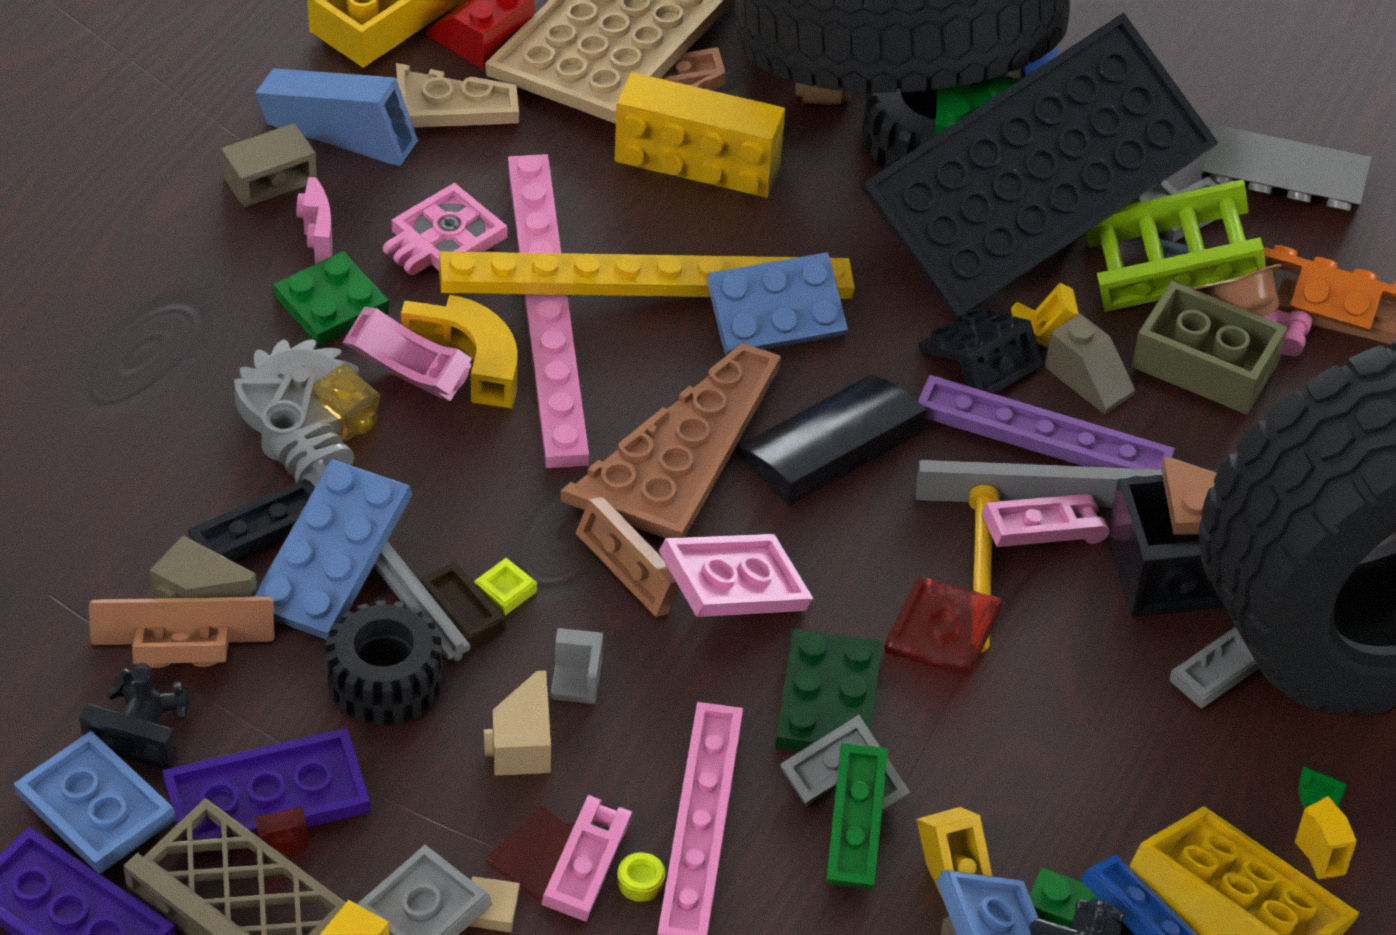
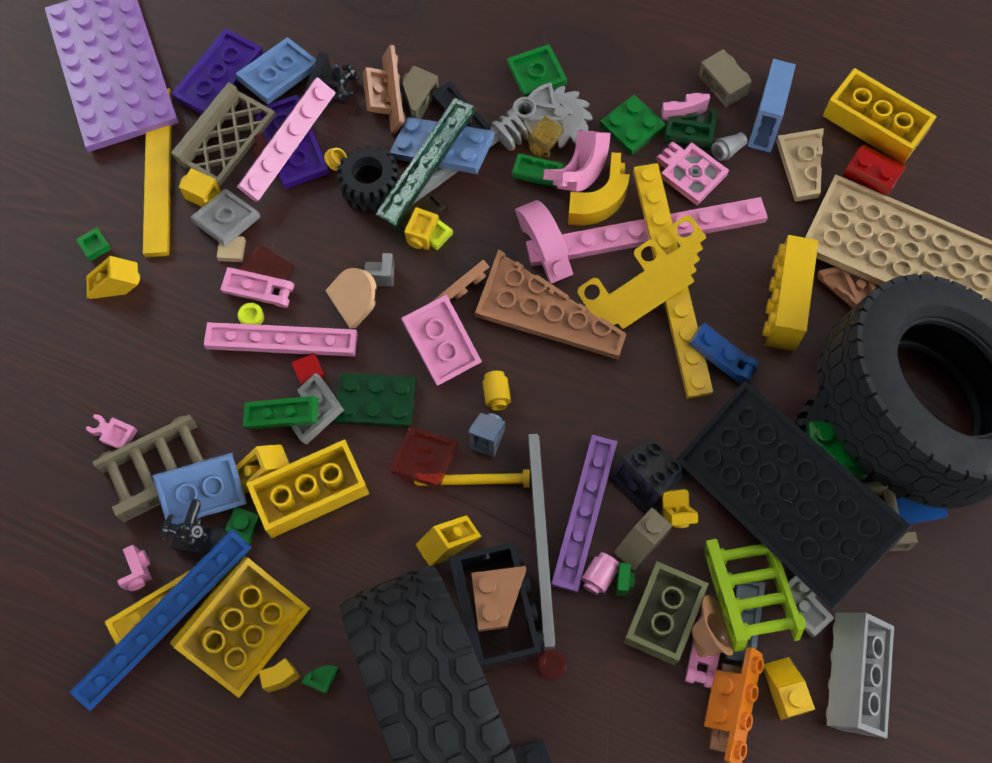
camera: 90 degrees right, 20 degrees up
(191, 409) = (536, 69): none -> green plate
(280, 777) = (286, 140): none -> bright pink plate
(323, 718) = (333, 157): none -> yellow plate
(361, 218) = (692, 129): none -> dark green wing
(379, 557) = (425, 162): none -> clear green tile
(403, 428) = (532, 169): none -> green plate
(404, 181) = (727, 146): none -> light grey cone
(504, 591) = (421, 228): none -> yellow bracket
(521, 730) = (335, 249): tan slope -> none
(545, 412) = (547, 238): none -> bright pink arch
(628, 699) = (353, 295): none -> light nougat tile
(665, 294) = (655, 285): none -> yellow piece
(762, 789) = (307, 367): none -> red tile
(777, 303) = (661, 351): medium blue plate -> none
(790, 232) = (723, 354): none -> blue plate
(829, 519) = (496, 390): none -> yellow brick
(833, 437) = (566, 391): black slope -> none
(911, 530) = (486, 433): none -> sand blue slope
(1005, 774) = (307, 489): none -> yellow brick
(1045, 520) = (508, 510): bright pink plate -> none
(1094, 604) = (447, 540): none -> yellow slope
(1145, 419) = (600, 573): none -> bright pink brick
(1154, 395) = (625, 579): none -> green plate
(1317, 232) = (788, 688): none -> yellow slope

